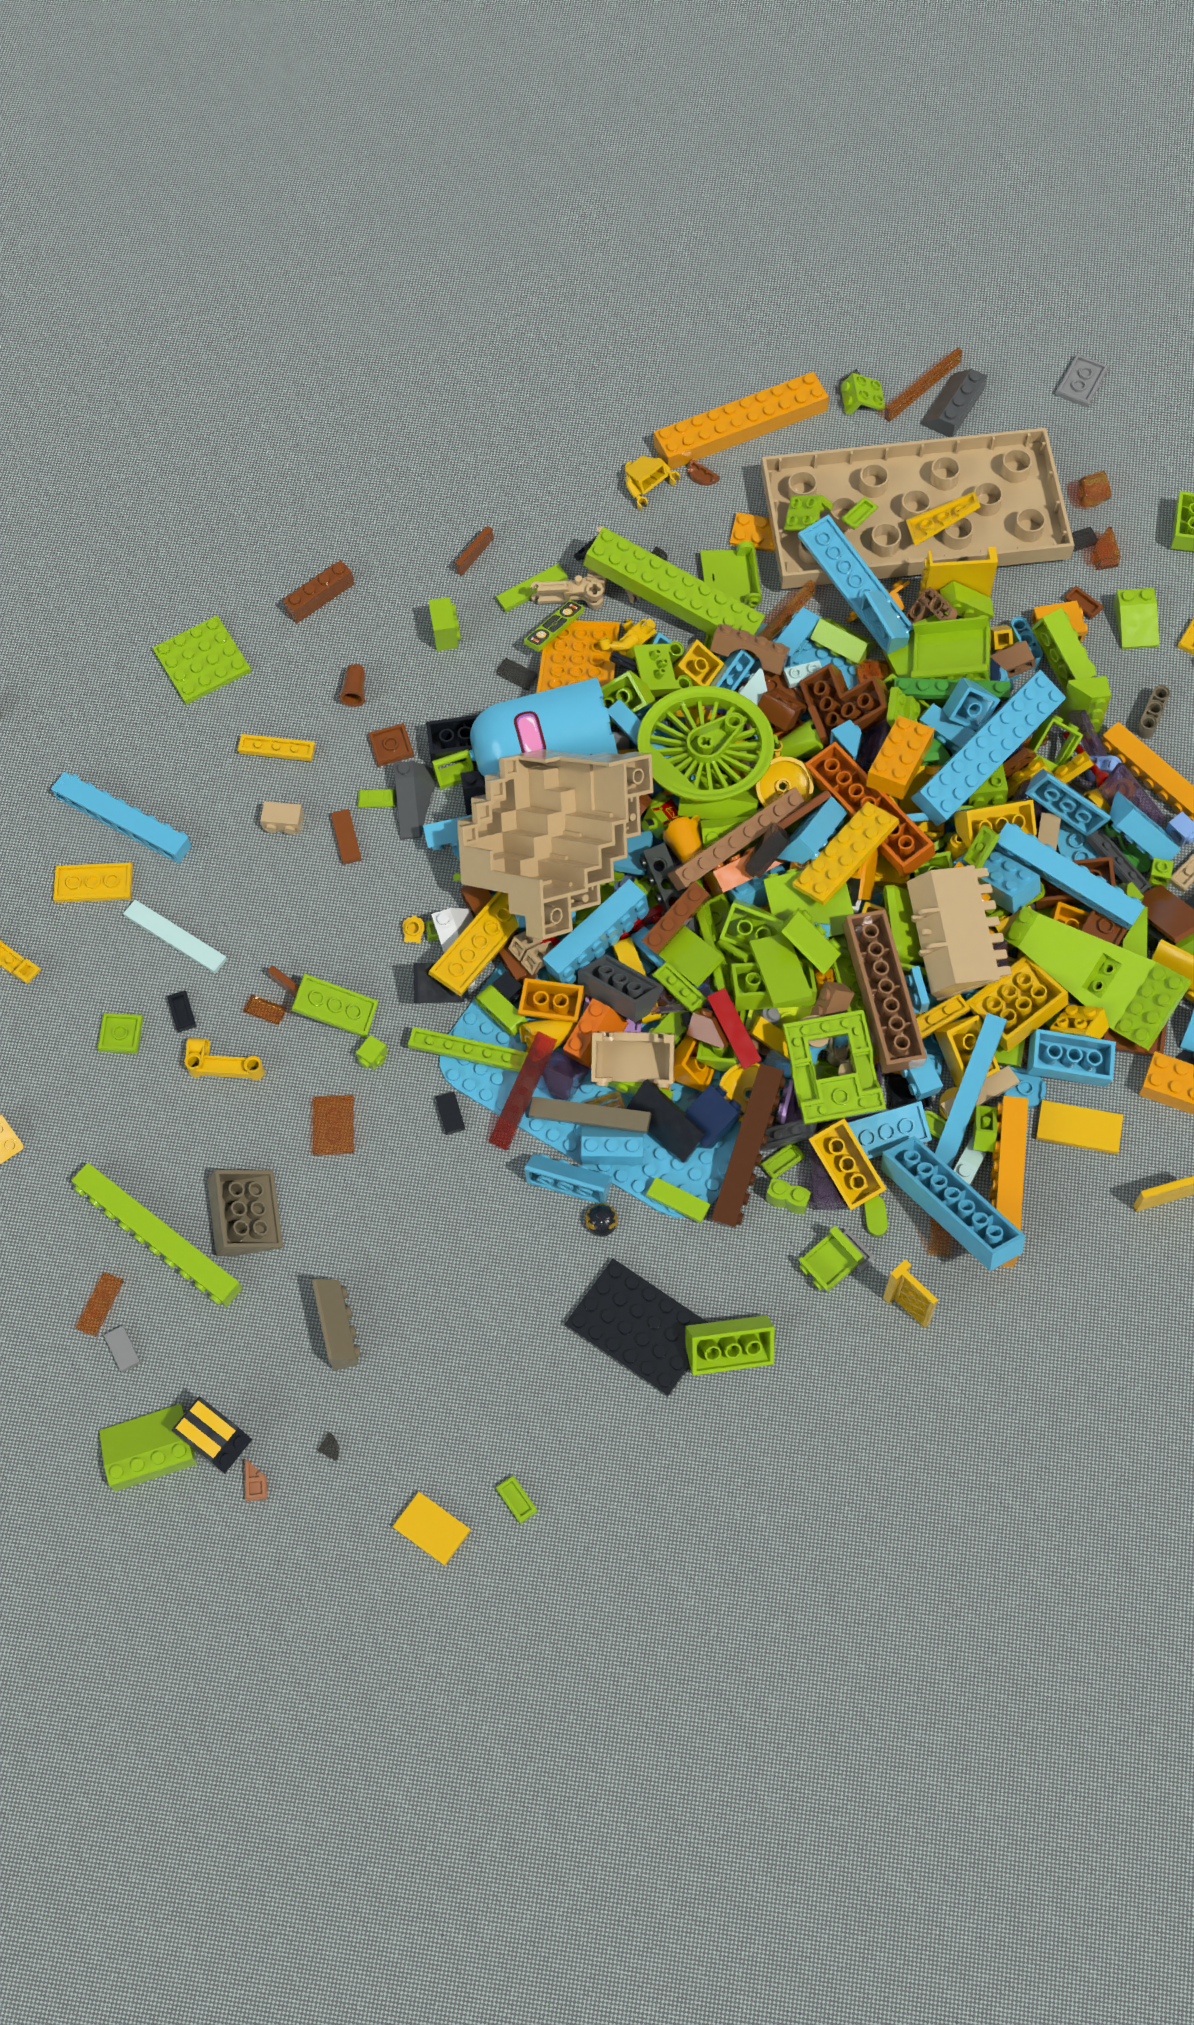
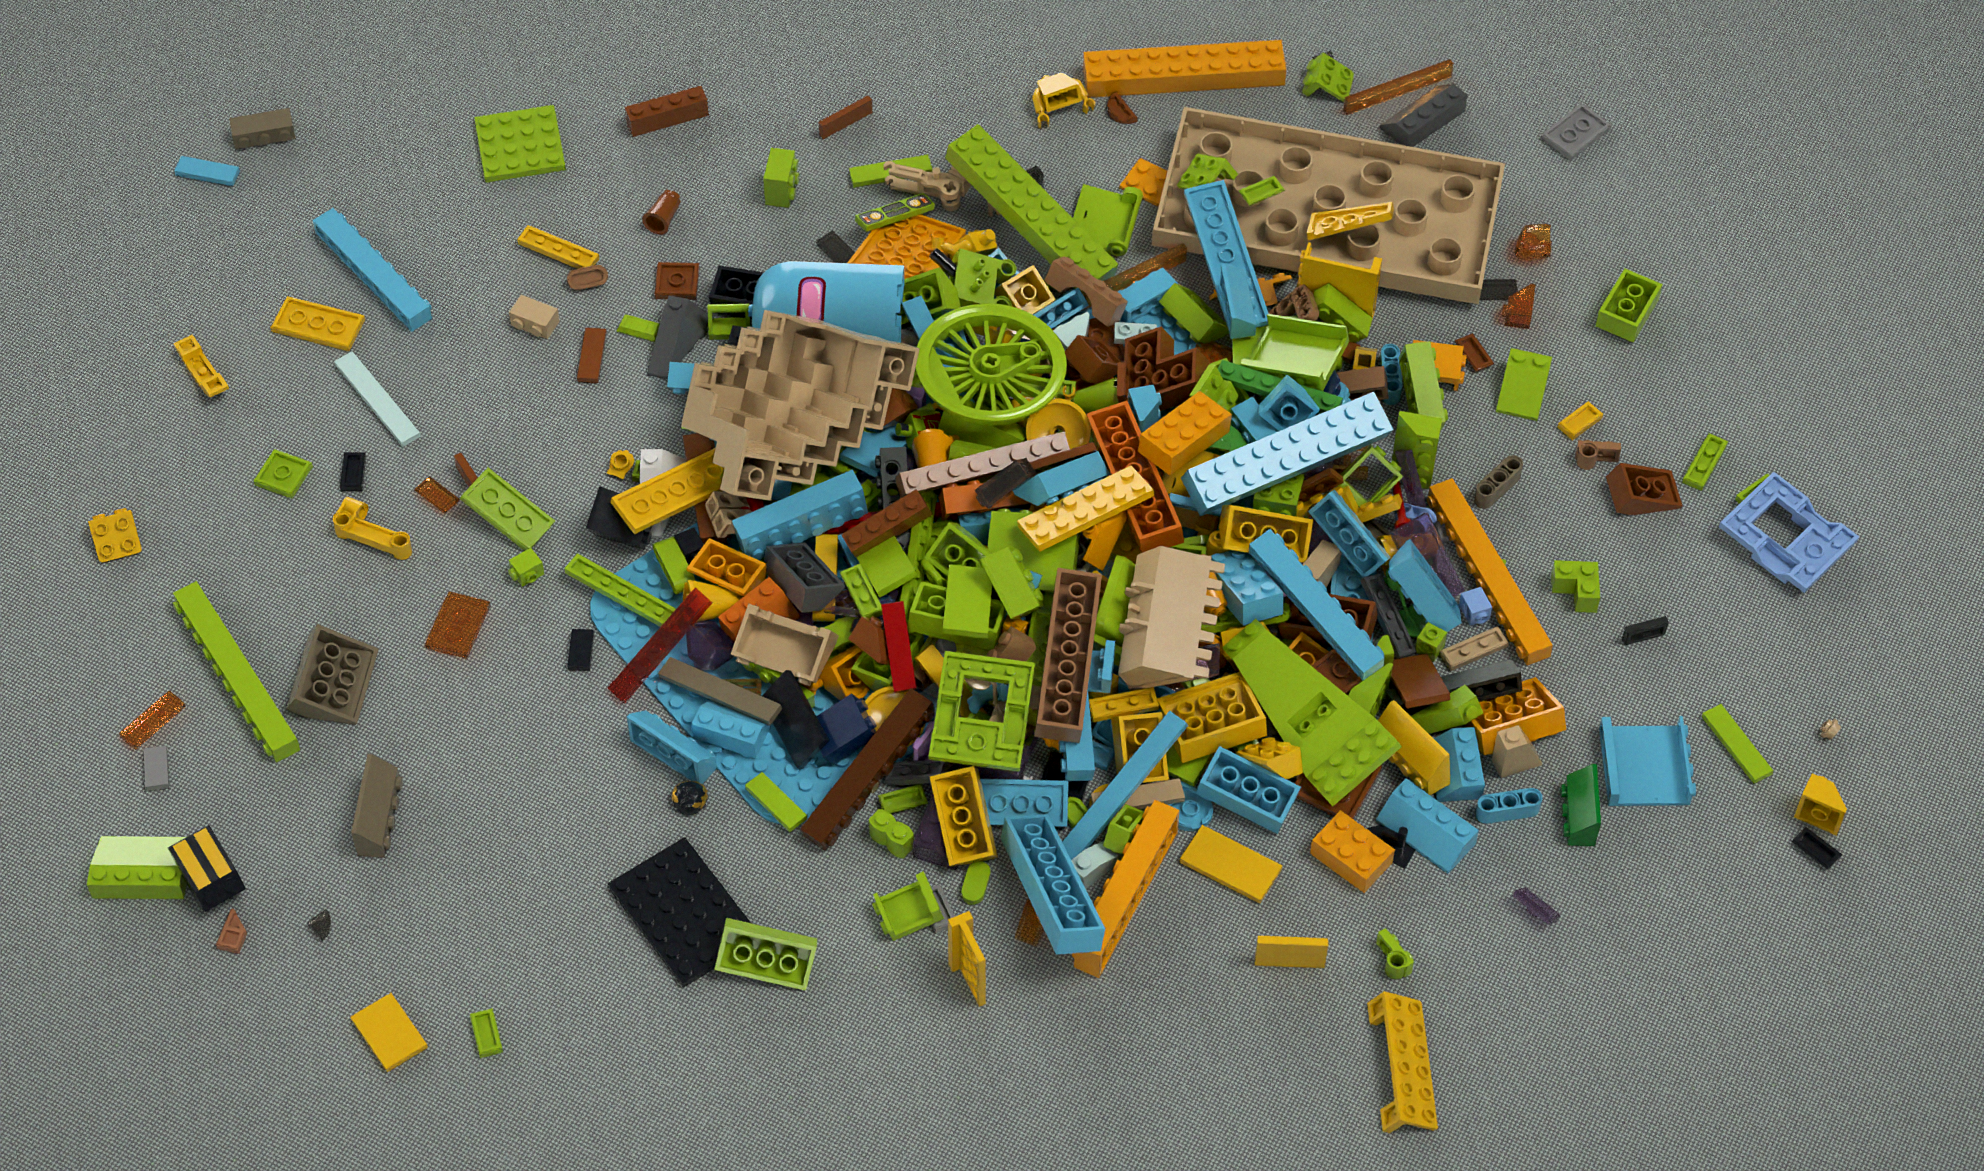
camera: 15 degrees right, 10 degrees down
(313, 766) = (587, 277): none -> medium nougat tile
(981, 847) = (1234, 546): lime plate -> none

